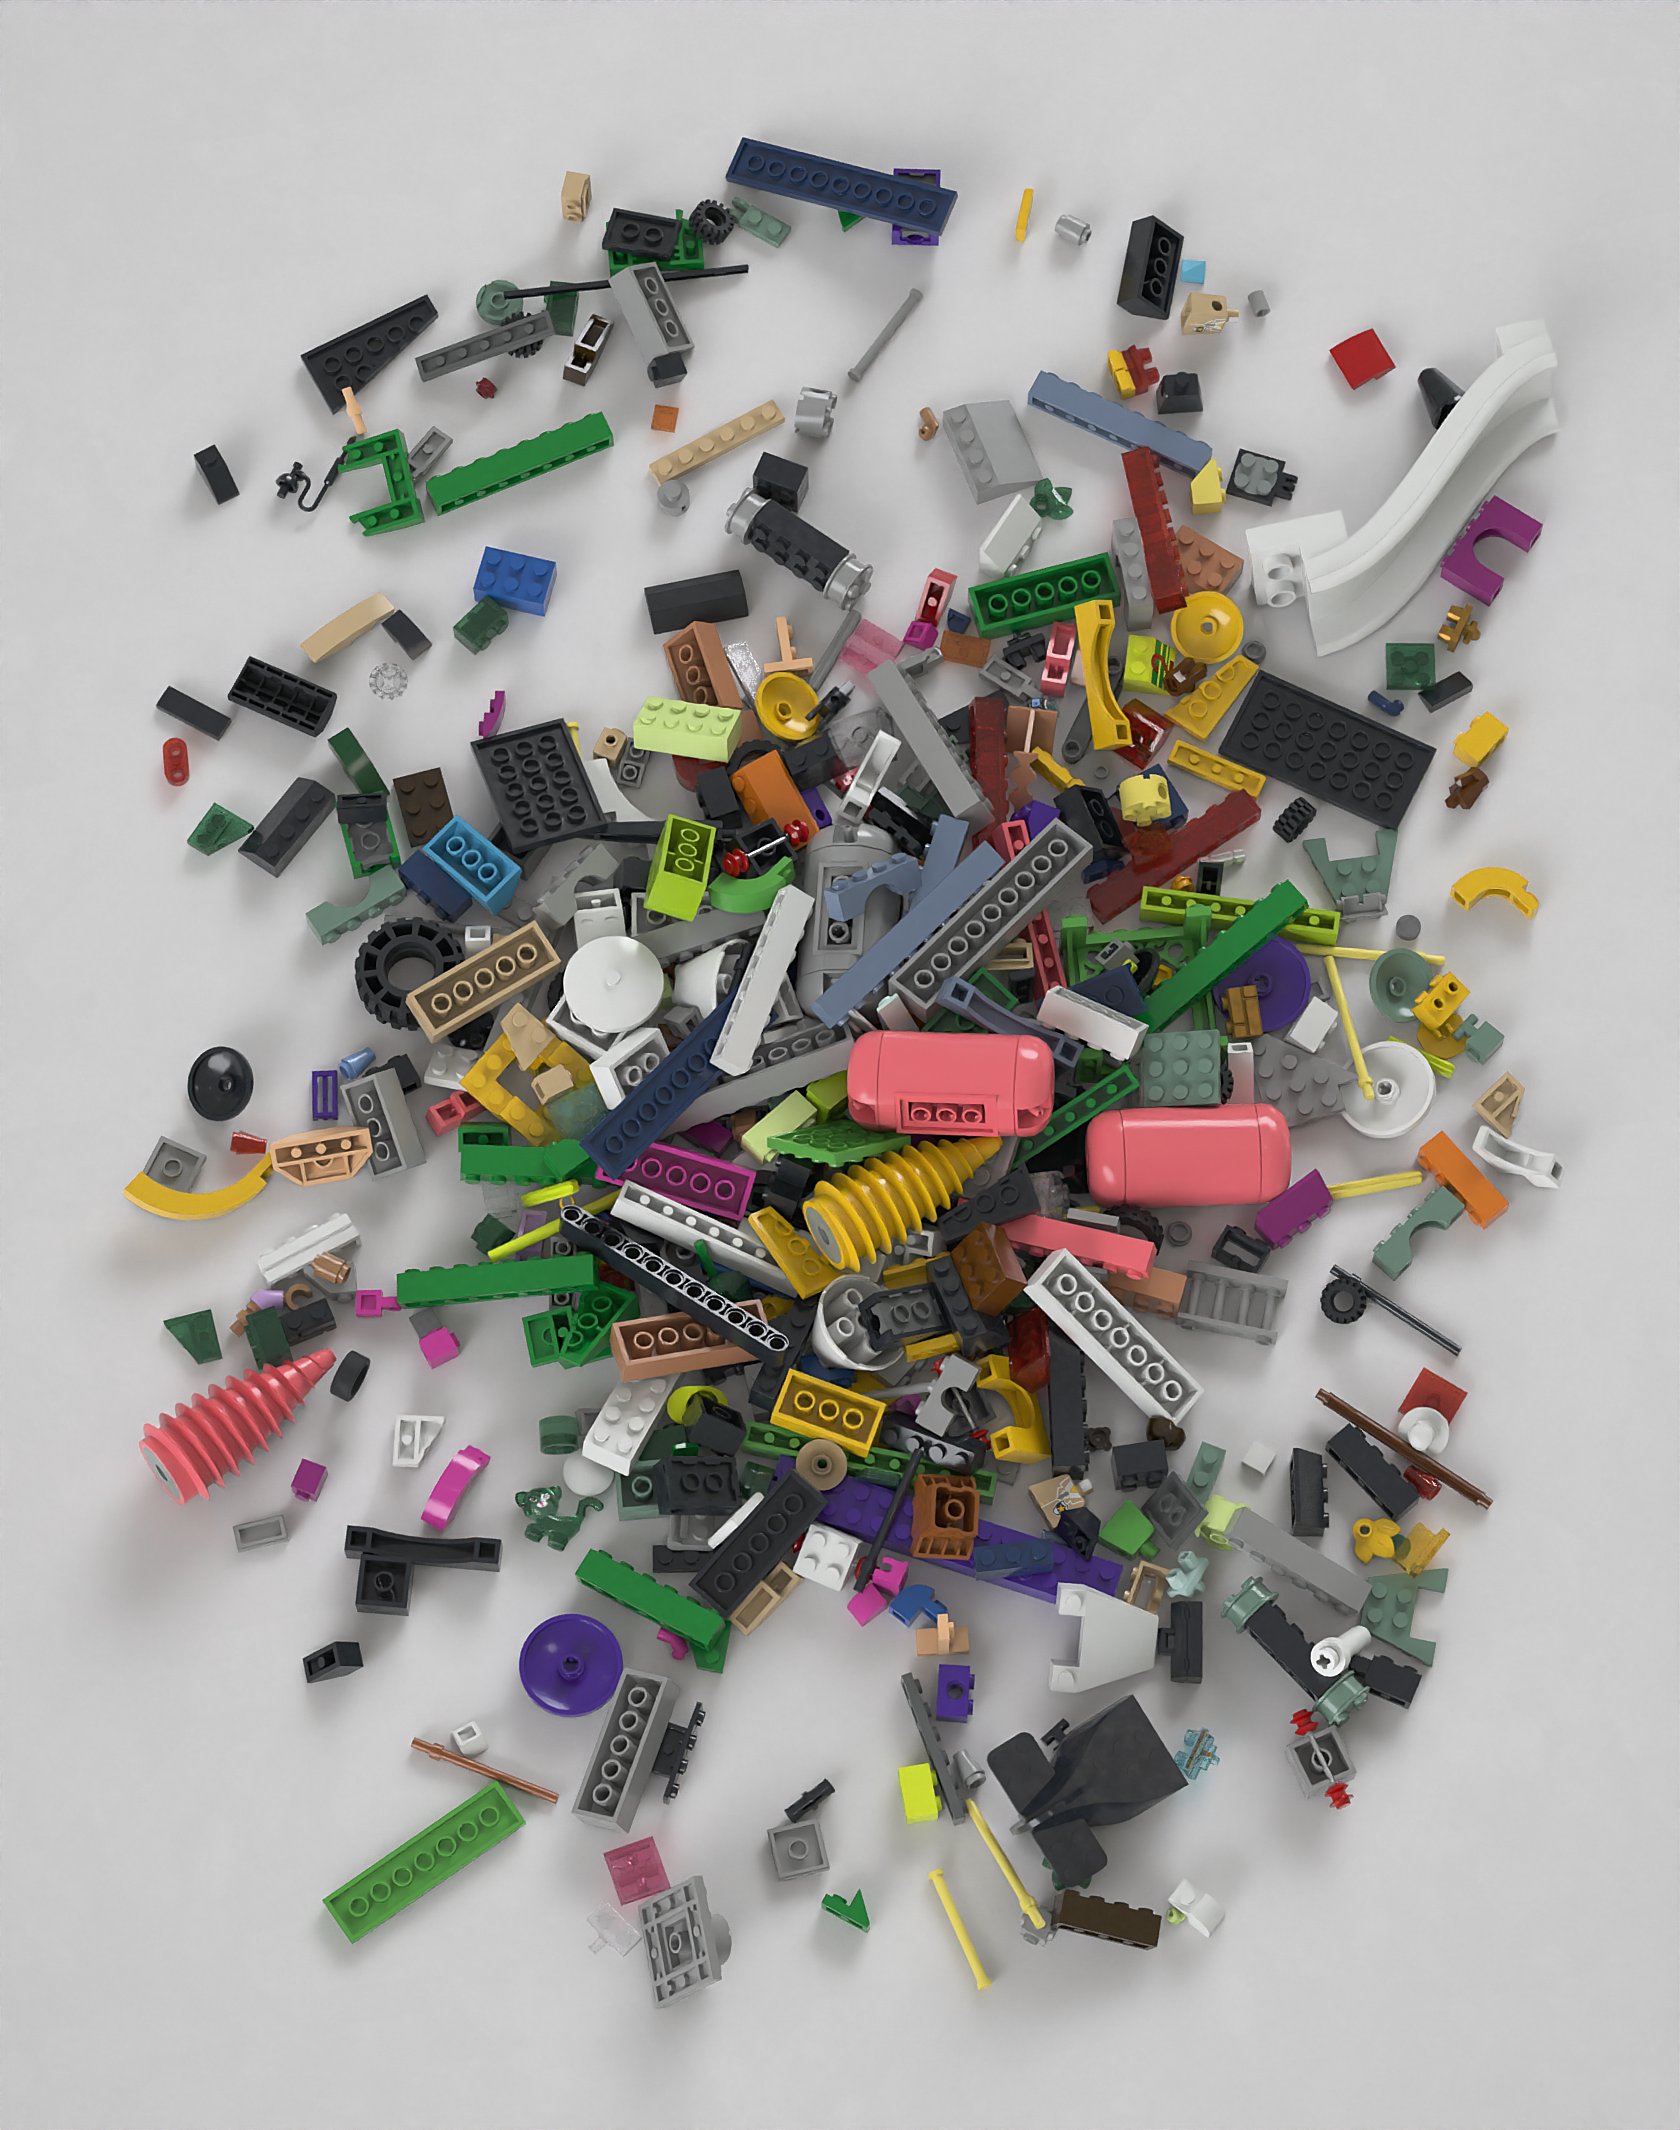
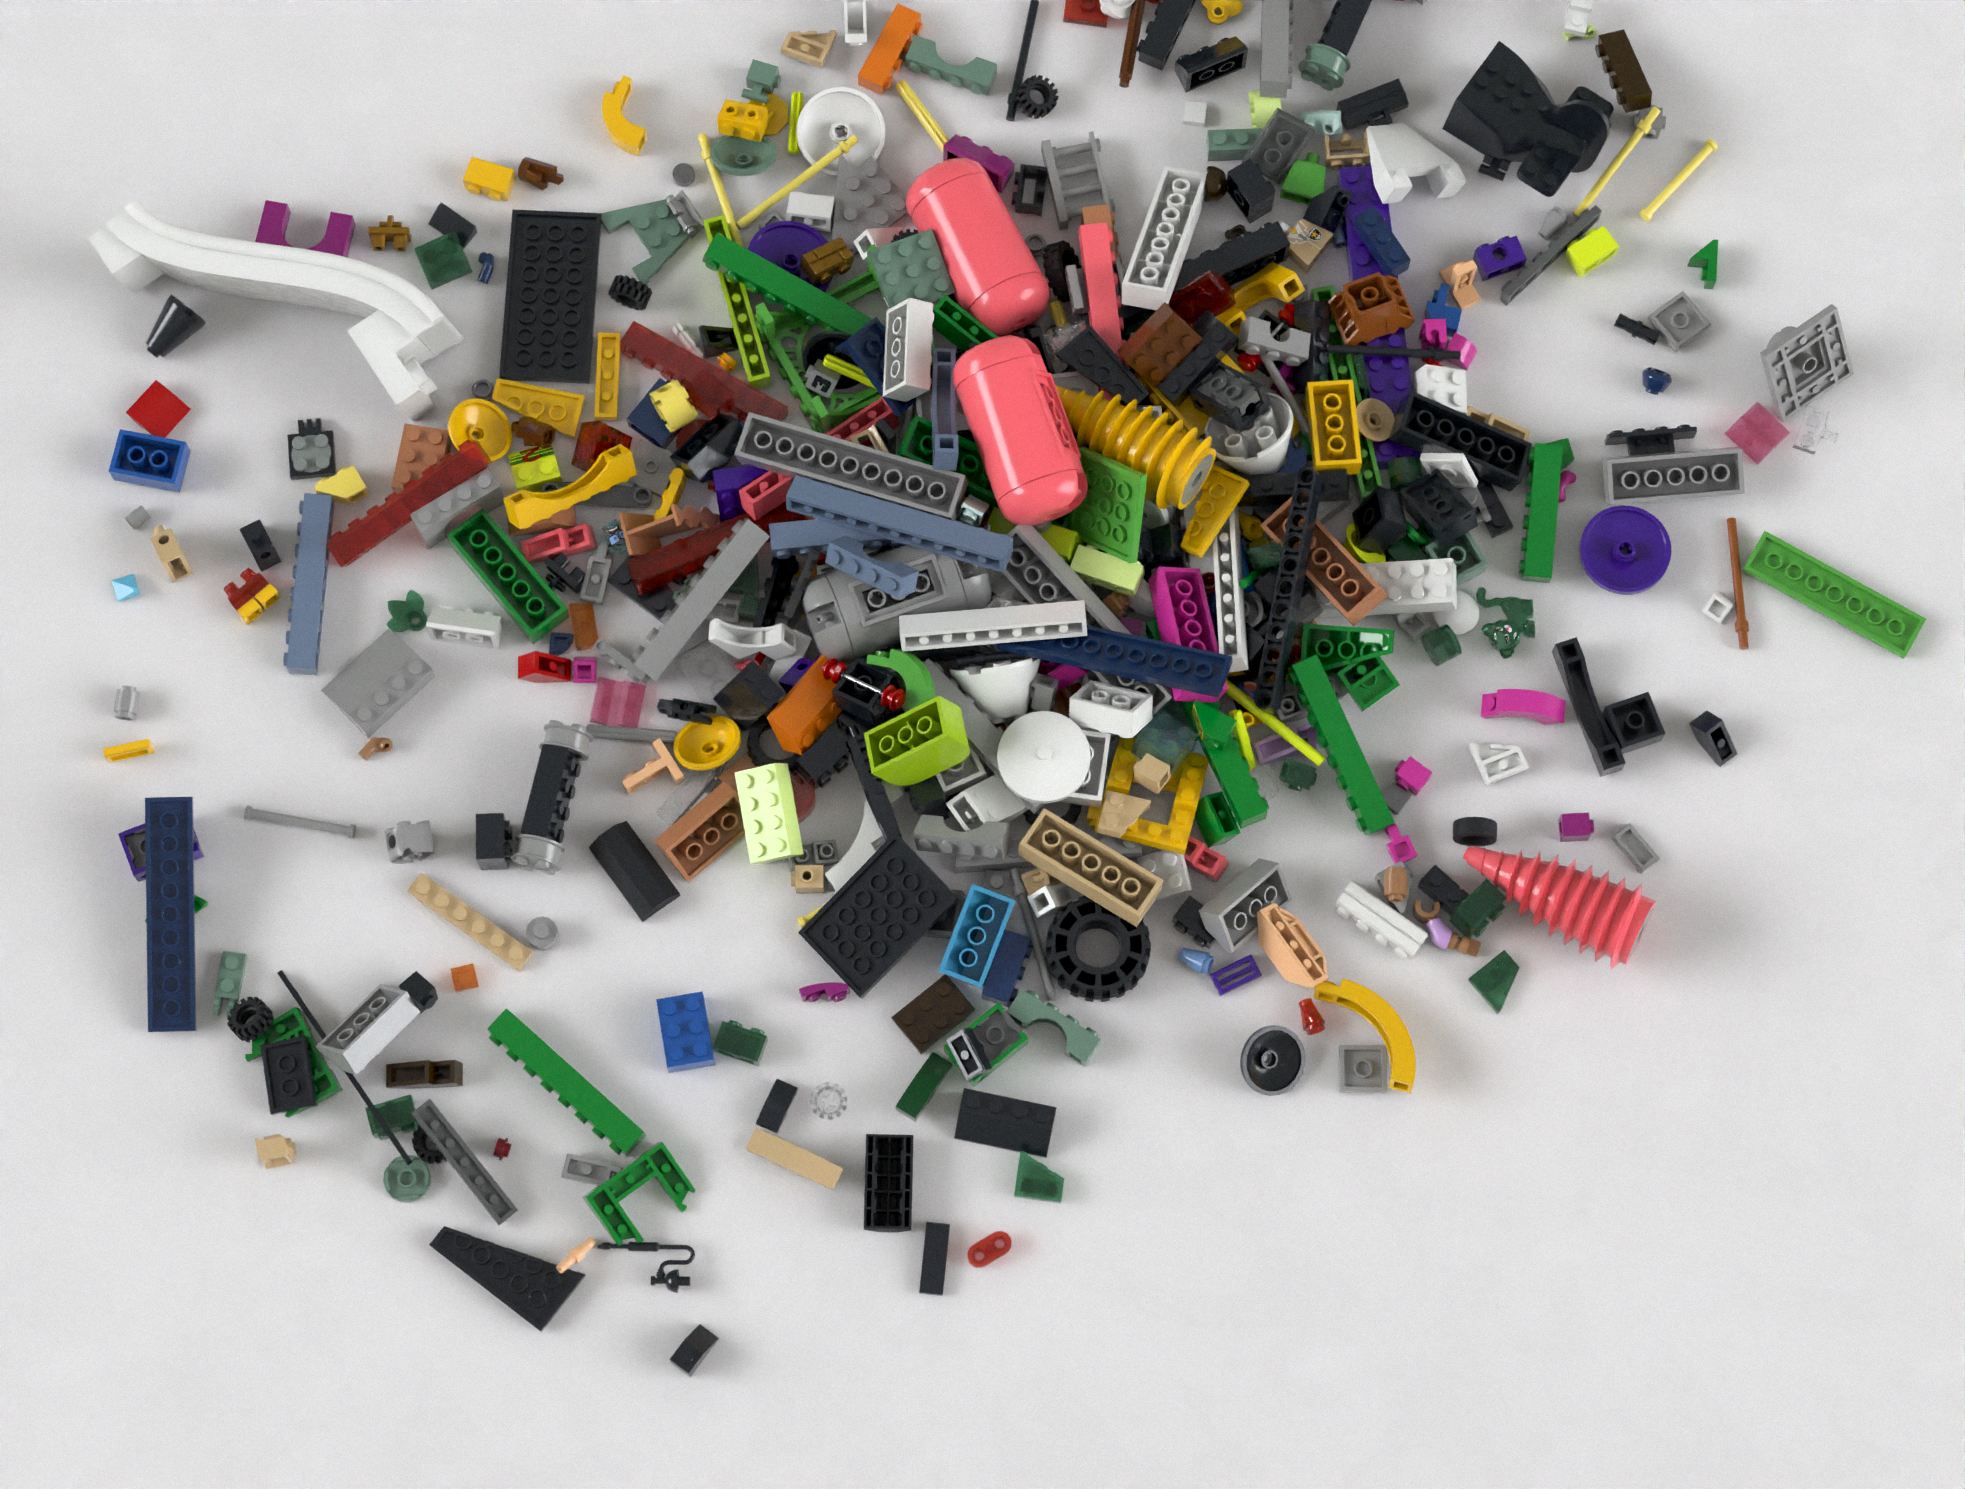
camera: 115 degrees left, 5 degrees up
(743, 1790) = (1655, 380): none -> dark blue cone
(1150, 268) = (141, 621): black slope -> none
(1200, 1755) = (1466, 65): clear light blue hips -> none
(1309, 329) = (149, 461): none -> blue brick

